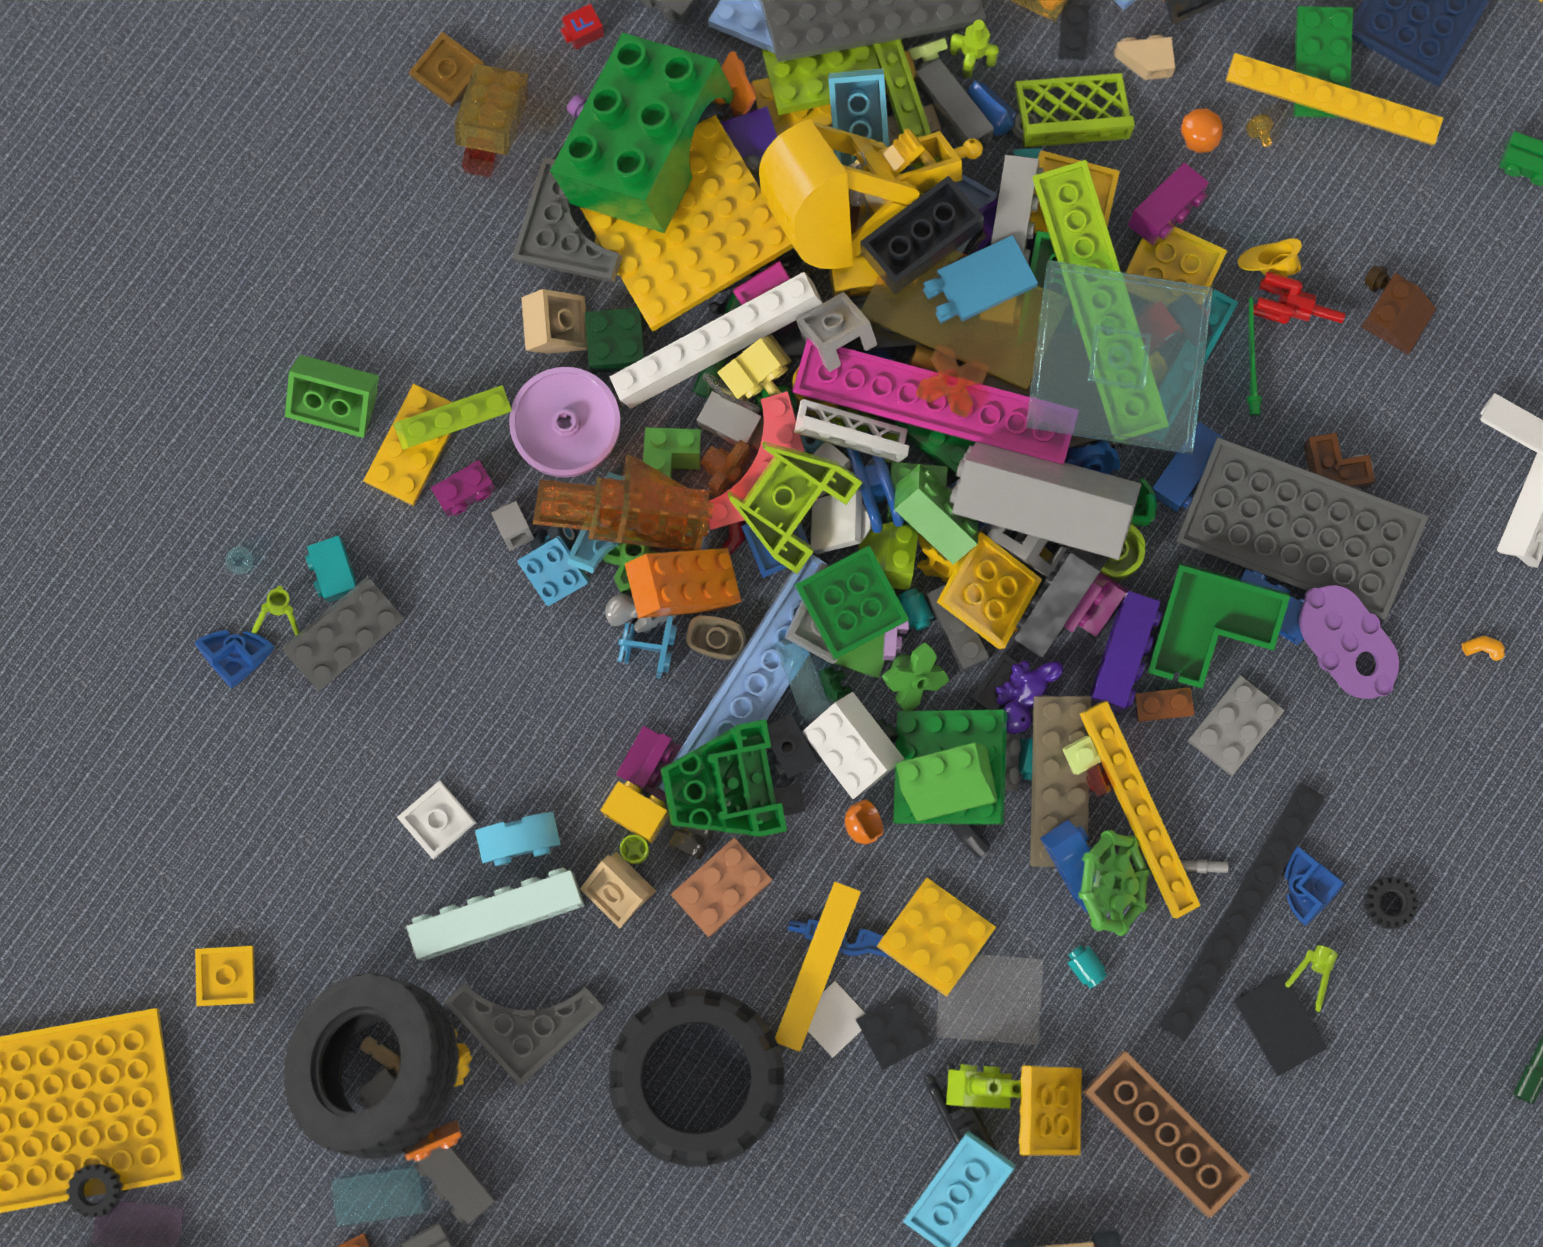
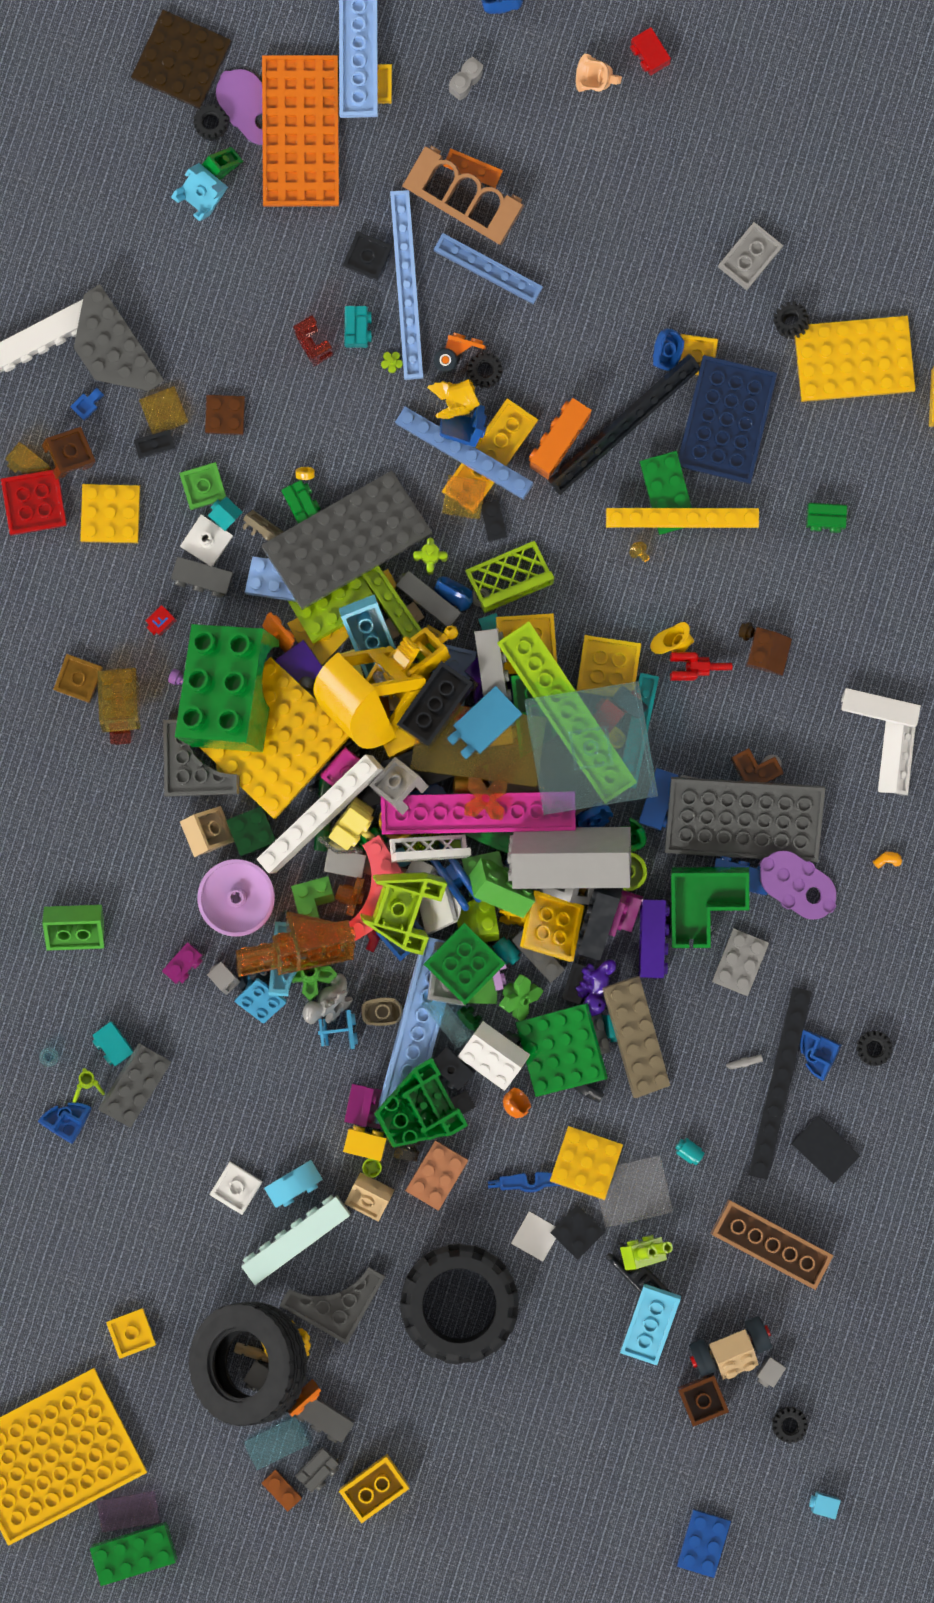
camera: 20 degrees left, 5 degrees up
(76, 1190) = (94, 1485): black tyre -> none
(407, 470) = (139, 942): yellow plate -> none
(452, 417) = (160, 919): lime brick -> none
(682, 582) = (349, 984): orange brick -> none
(817, 966) = (514, 1206): yellow tile -> none
(928, 50) = (400, 565): yellowish green plate -> none
(947, 781) = (563, 1062): bright green slope -> none
(1050, 1111) = (693, 1253): yellow plate -> none
(1066, 849) = (664, 1089): blue brick -> none
(1081, 755) = (644, 1017): yellowish green plate -> none
(1098, 780) = (663, 1026): clear red plate -> none
(1115, 882) = (692, 1100): bright green plate -> none
(1140, 809) = (693, 1039): yellow plate -> none
(1148, 57) = (549, 525): tan slope -> none
(1164, 704) = (689, 963): dark orange plate -> none
(1169, 204) = (593, 625): magenta brick -> none
(1202, 130) = (600, 563): orange hair -> none
(1254, 399) = (689, 739): green sword -> none
(1322, 962) = (841, 1101): lime plant -> none

